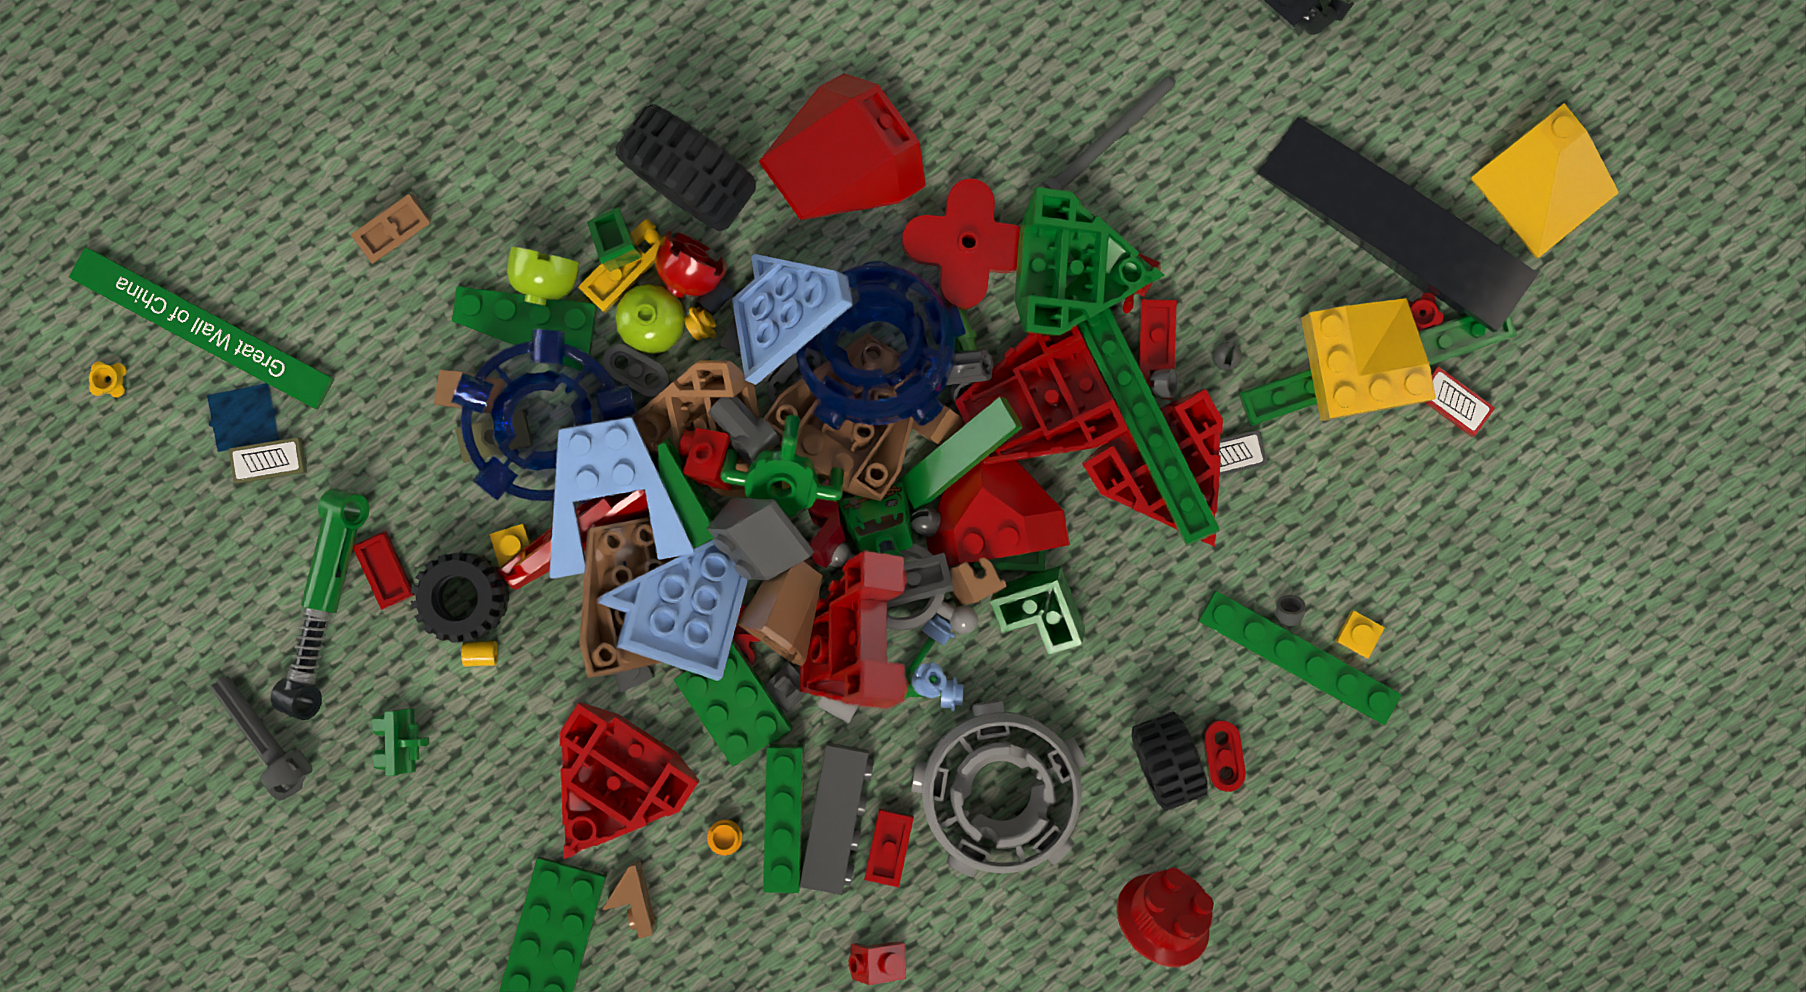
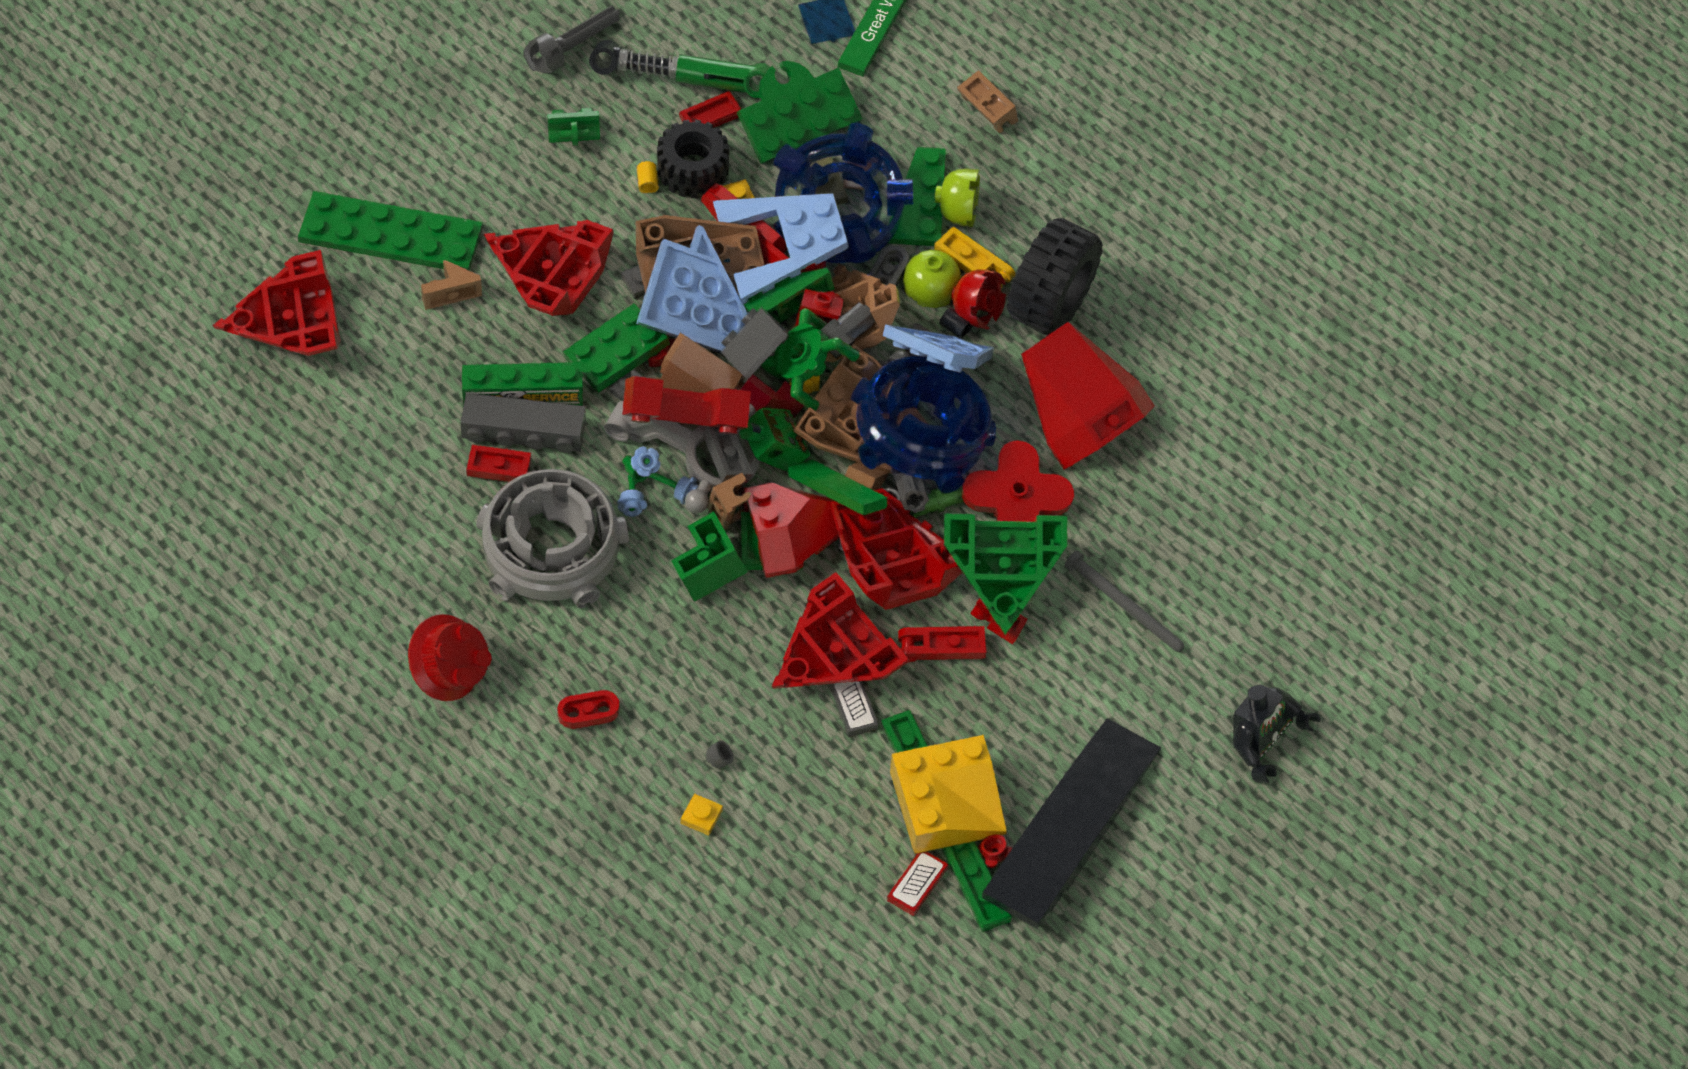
camera: 80 degrees right, 30 degrees down
(267, 460) = (793, 35): tile -> none
(394, 464) = (797, 109): none -> green plate
(613, 240) = (991, 242): green slope -> none
(700, 323) = (931, 311): yellow plate -> none
(724, 837) = (503, 349): light orange plate -> none
(877, 962) = (401, 461): red bracket -> none
(925, 521) = (778, 474): dark grey hinge -> none
(1148, 428) = (874, 622): green plate -> none
(1164, 382) = (905, 640): dark grey hinge -> none
(1169, 761) = (583, 651): black tyre -> none
(1220, 355) = (939, 702): dark grey hinge -> none
(1299, 658) = (677, 768): green plate -> none
(1547, 181) = (1127, 948): yellow slope -> none

